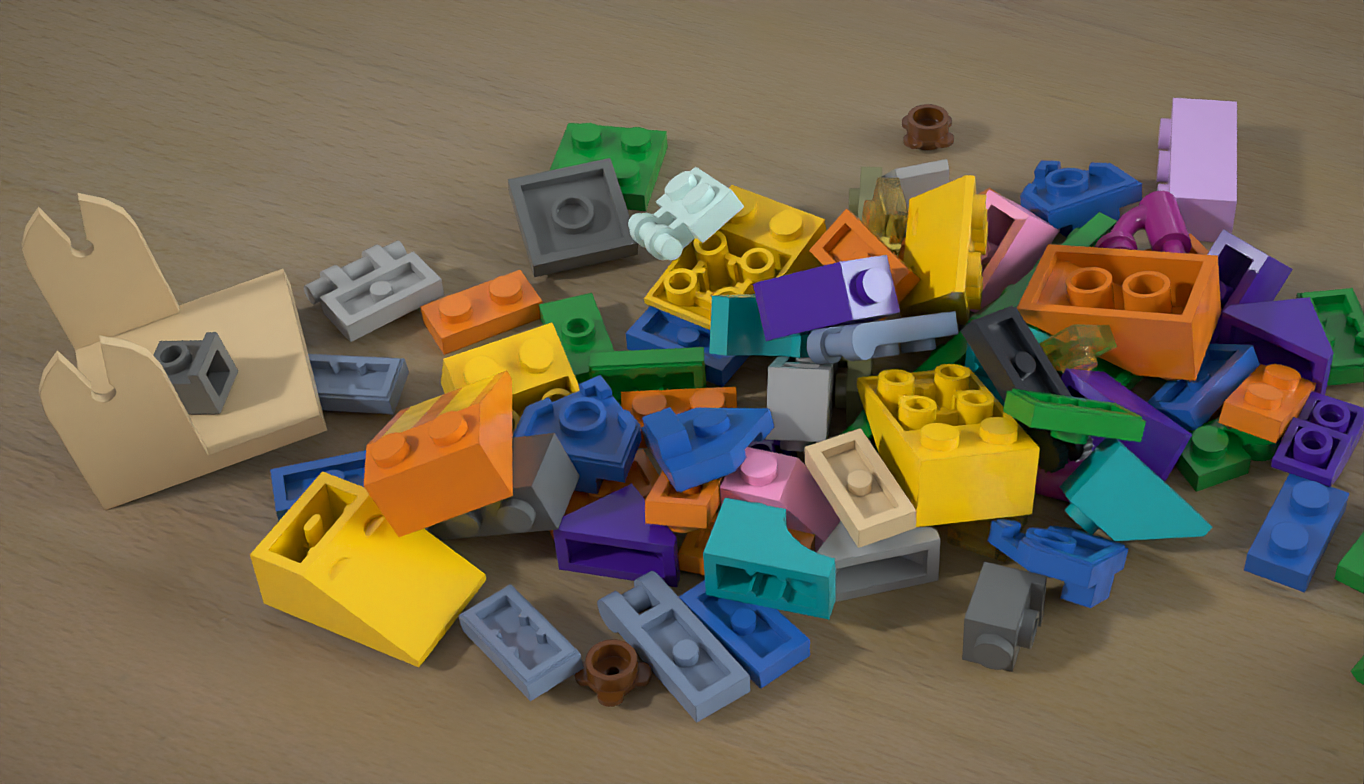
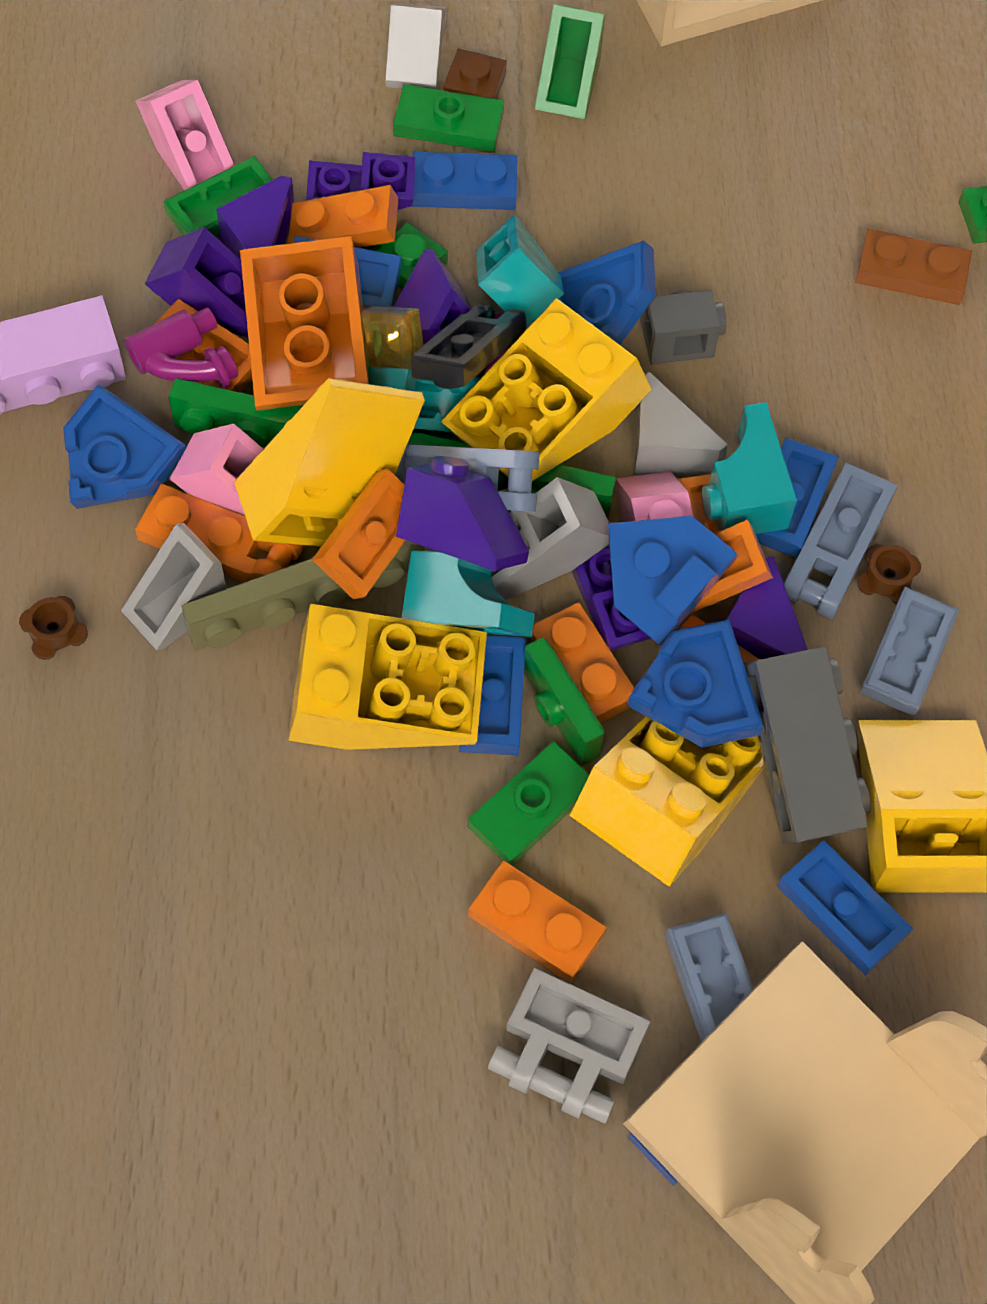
camera: 125 degrees left, 20 degrees up
(199, 372) = (817, 1091): dark grey brick -> none
(443, 456) = (810, 757): orange slope -> none
(572, 217) = (374, 889): dark grey plate -> none
(633, 152) = (249, 924): green plate -> none
(688, 210) = (349, 724): light aqua plate -> none
(860, 488) = (647, 429): tan plate -> none
(887, 212) = (288, 542): clear yellow plate -> none
(1073, 417) = (506, 287): green plate -> none

